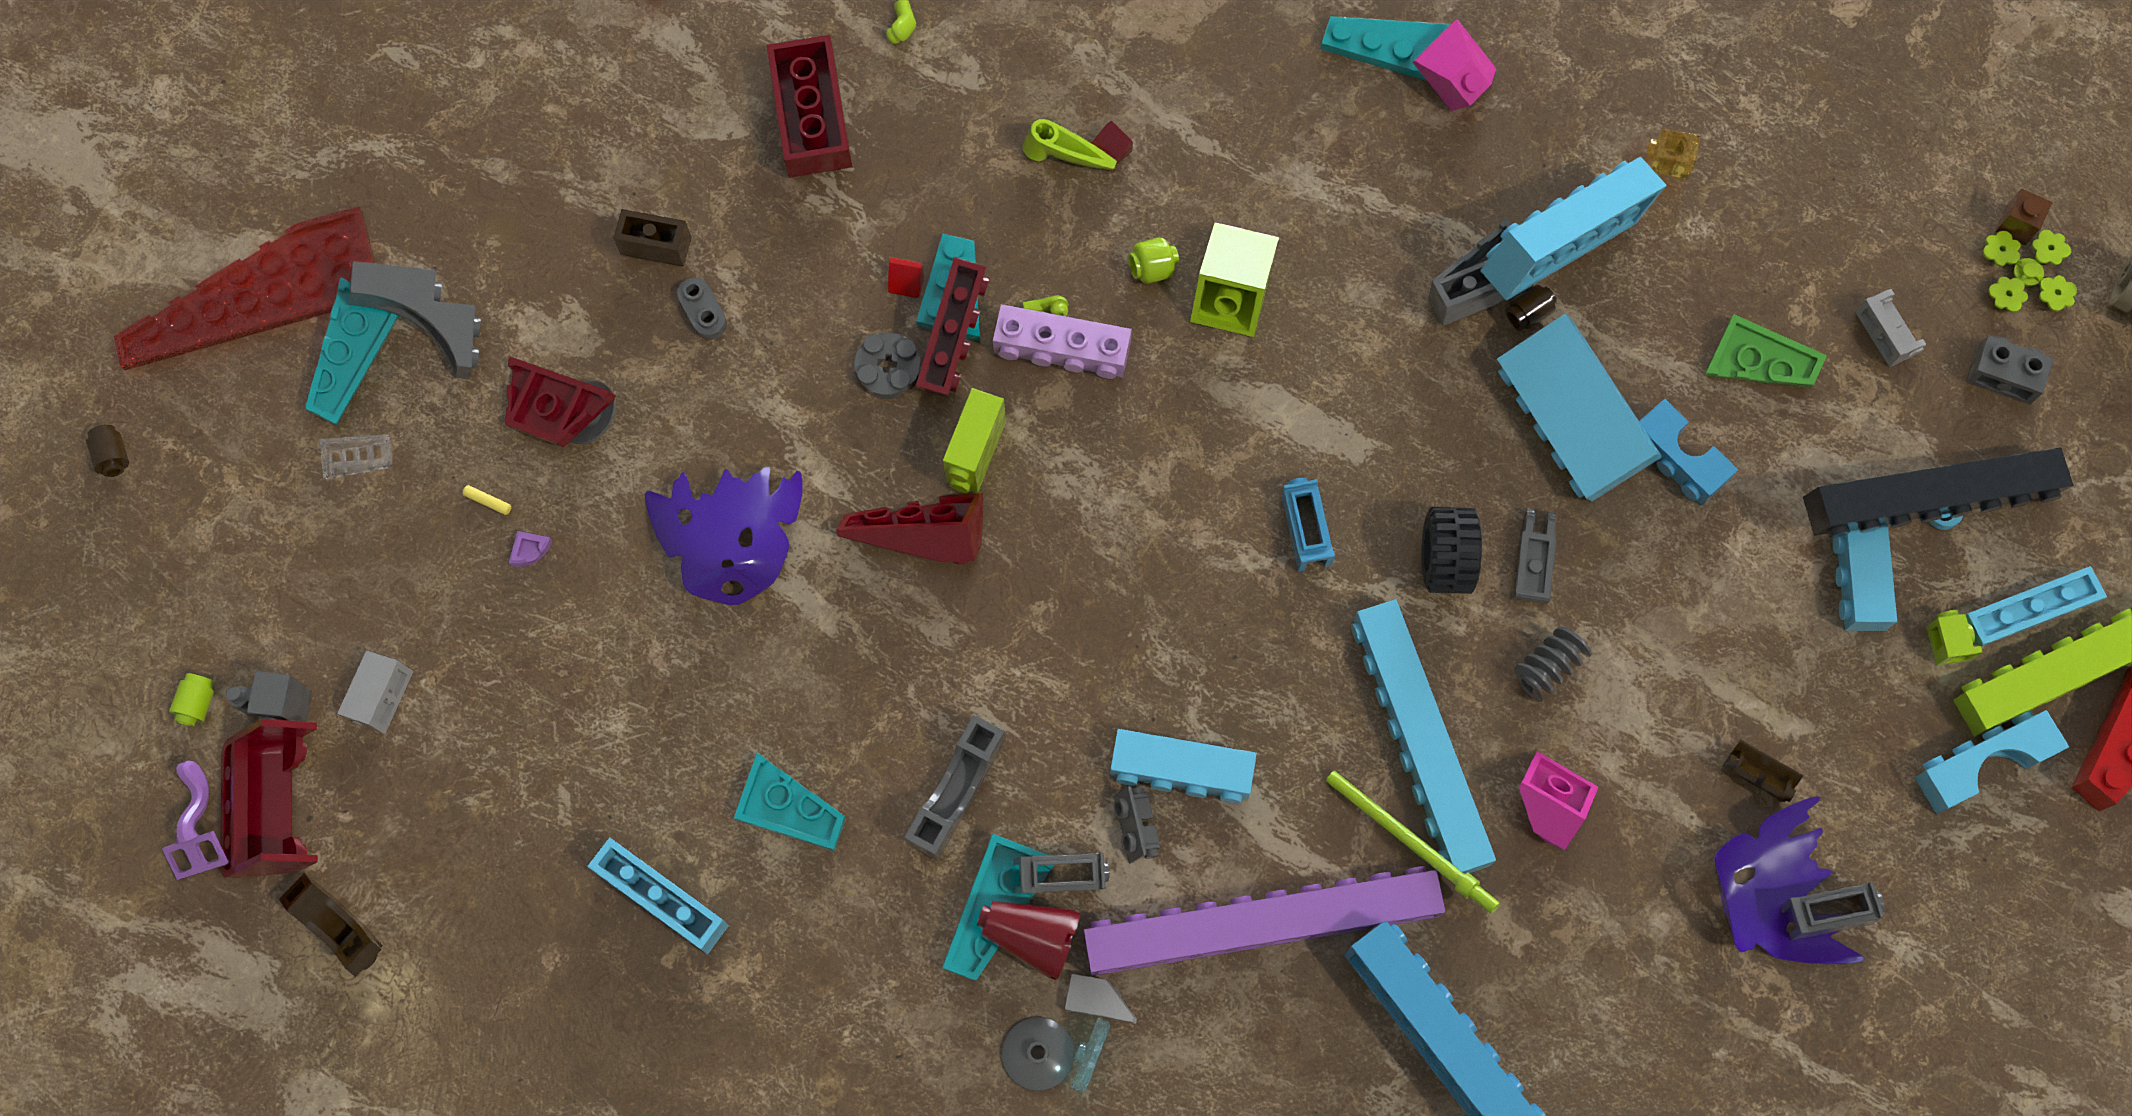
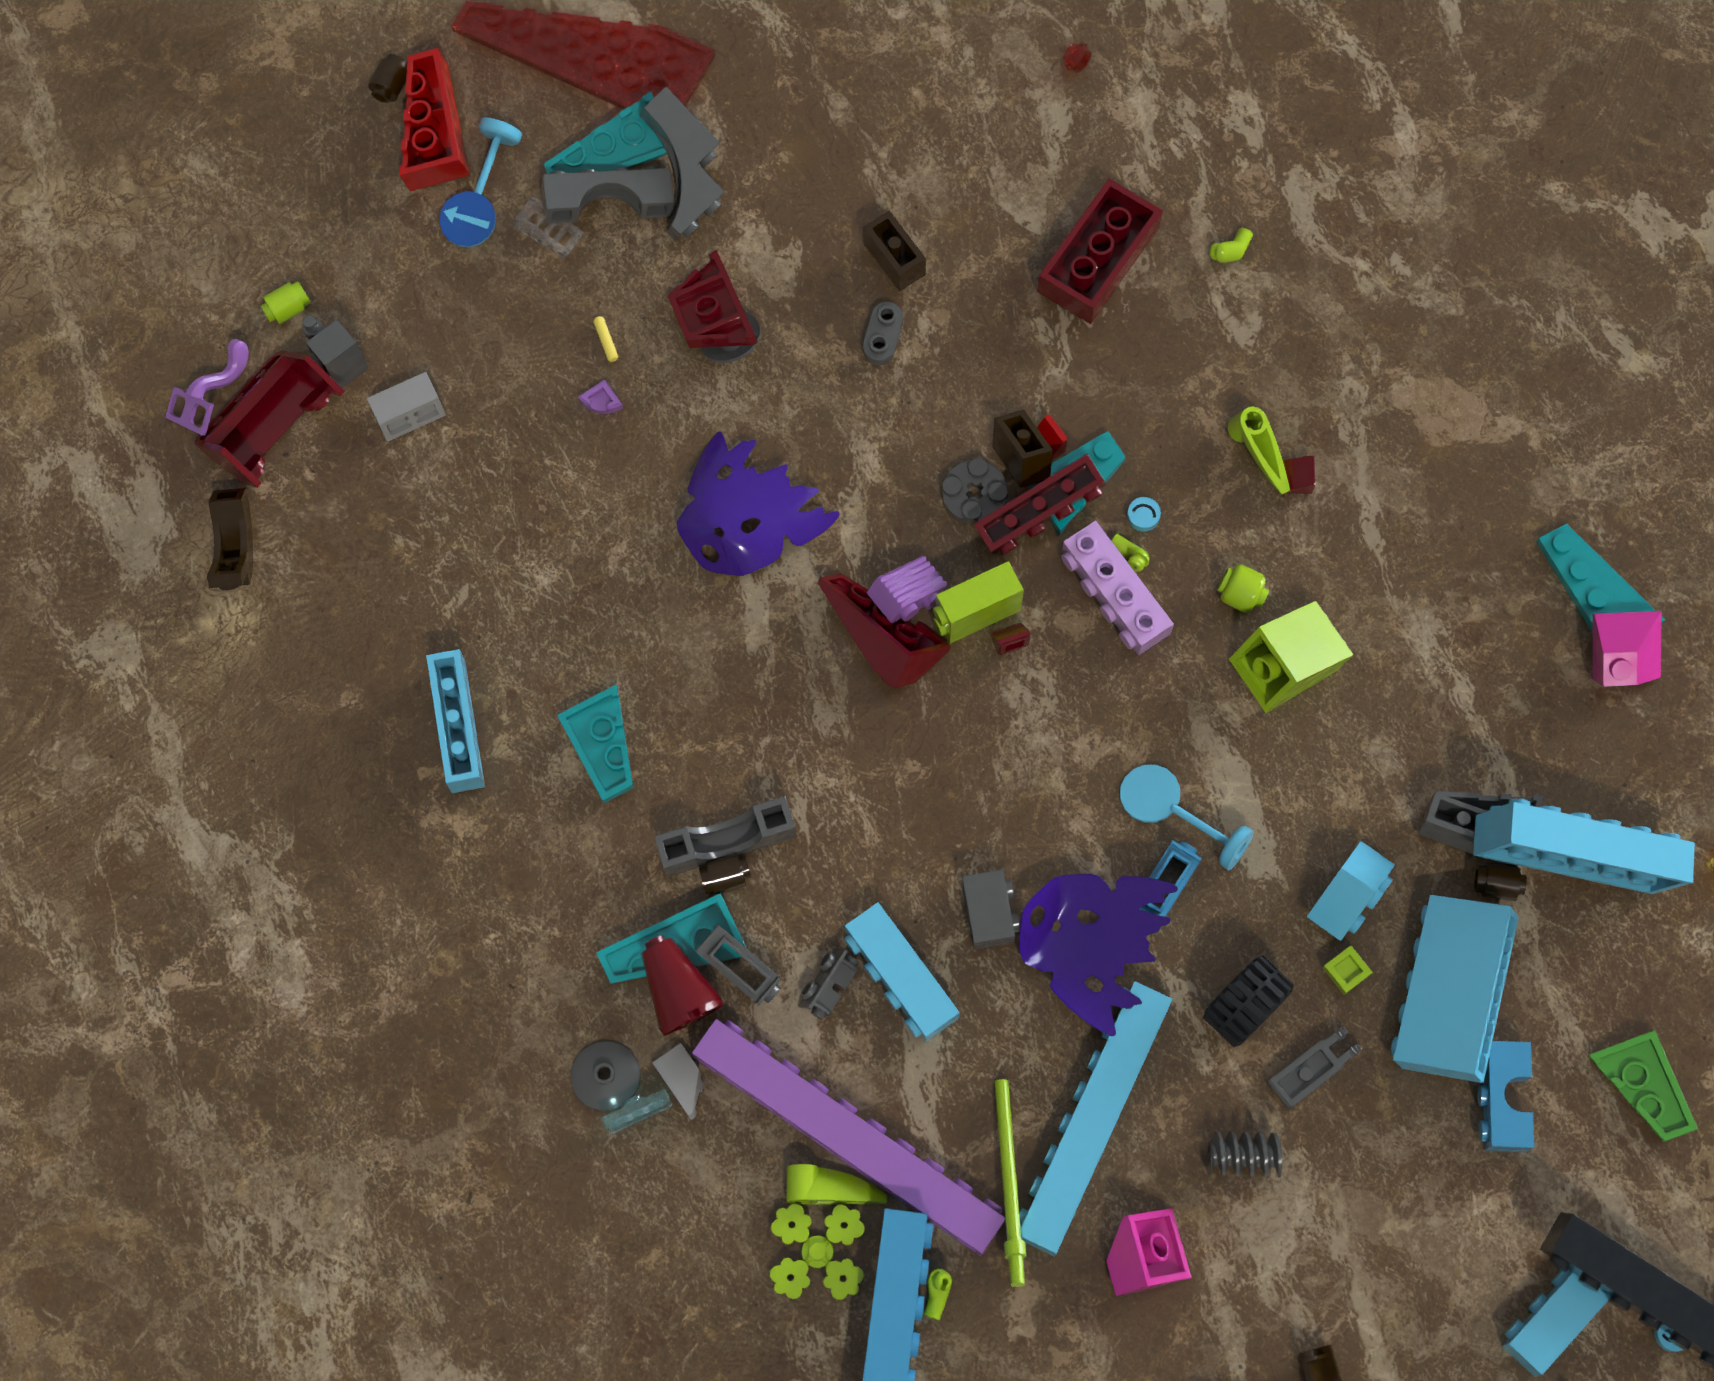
camera: 45 degrees right, 0 degrees up
(186, 461) = (432, 132): none -> red wedge
(280, 502) = (468, 216): none -> piece
(409, 358) = (645, 190): none -> dark grey arch
(895, 299) = (1022, 448): none -> dark brown brick
(911, 479) = (907, 589): none -> medium lavender brick
(980, 817) = (724, 874): none -> dark brown brick
(1019, 447) = (1010, 638): none -> dark red slope
(1027, 271) = (1143, 514): none -> medium azure tile
(1202, 658) = (989, 909): none -> dark grey brick
(1234, 468) = (1153, 794): none -> medium azure piece
(1282, 974) = (824, 1186): none -> lime piece
(1305, 615) = (1094, 948): none -> dark purple piece
(1323, 1028) = (817, 1251): none -> lime plant
(1439, 971) = (939, 1287): none -> lime arm
(1443, 406) = (1355, 886): none -> medium azure brick
(1490, 466) = (1347, 970): none -> lime plate

